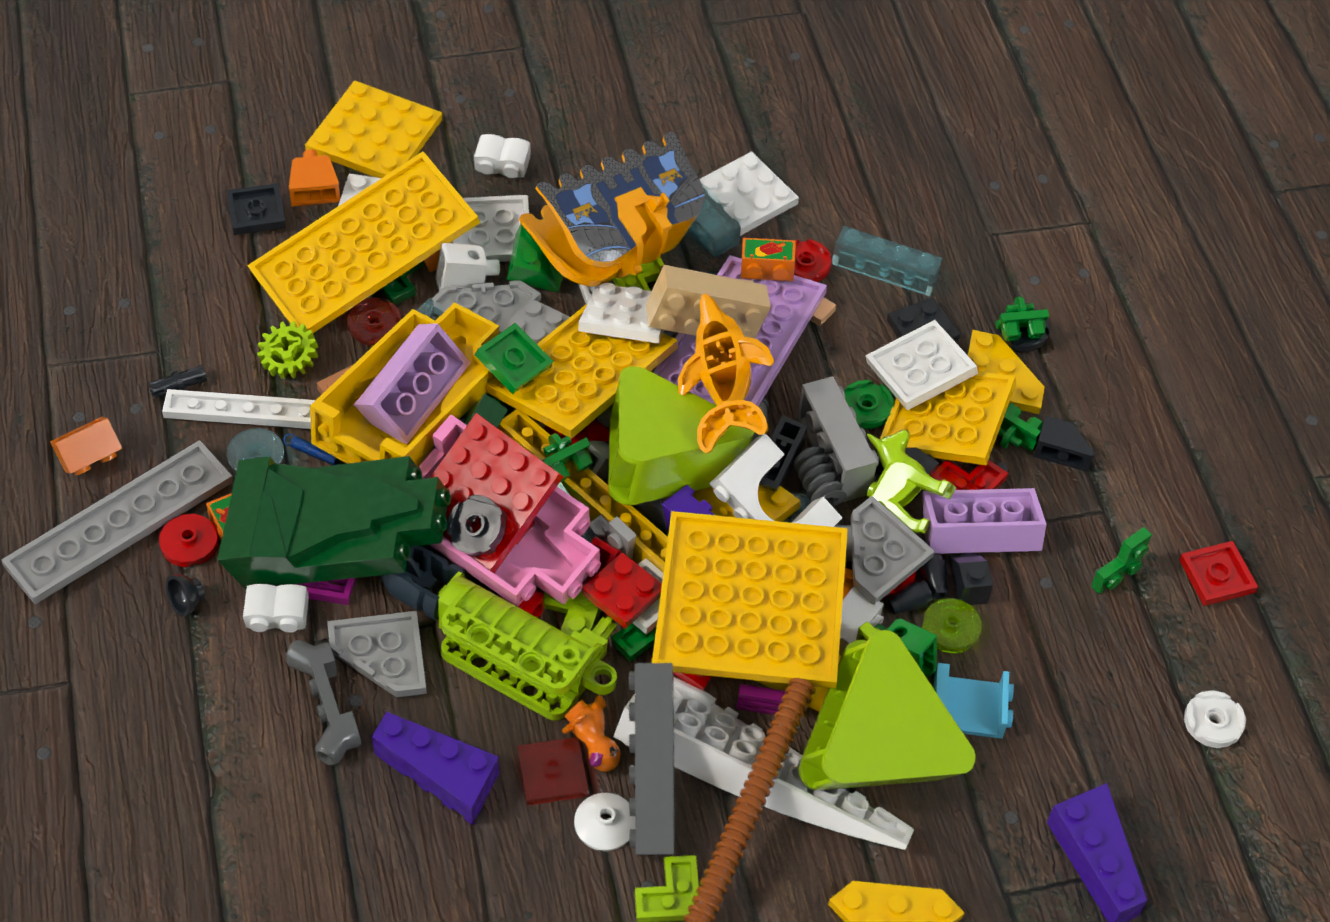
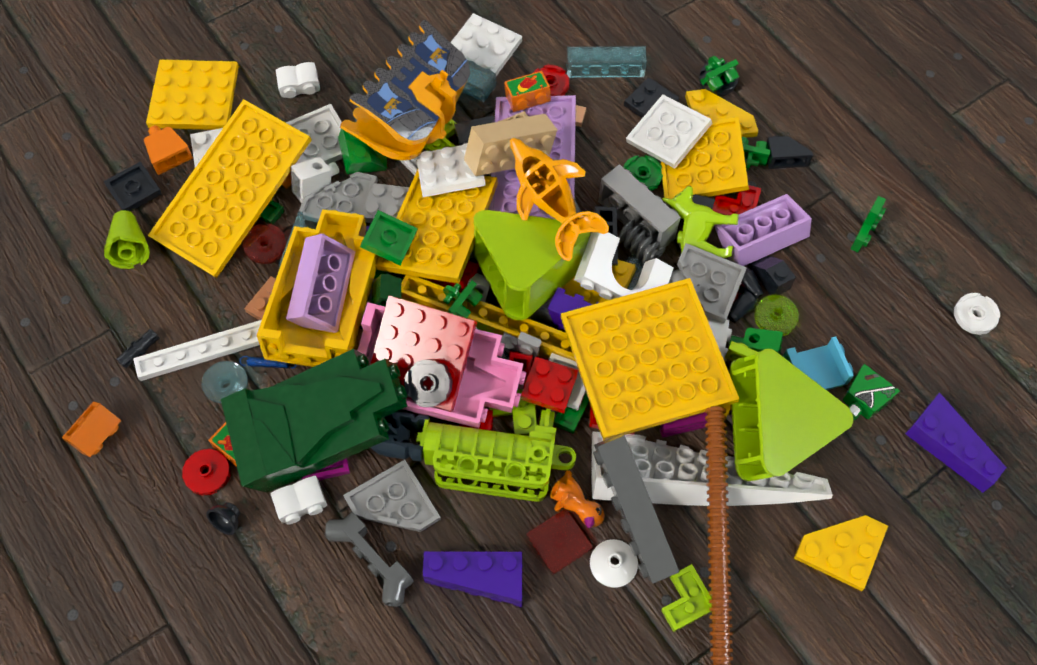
camera: 20 degrees left, 10 degrees up
(116, 522) = (143, 481): light grey plate -> none
(219, 263) = (125, 242): none -> lime cone
(290, 346) = (204, 296): lime gear -> none
(1019, 756) = (869, 393): none -> green torso
(1218, 573) = (928, 207): red plate -> none

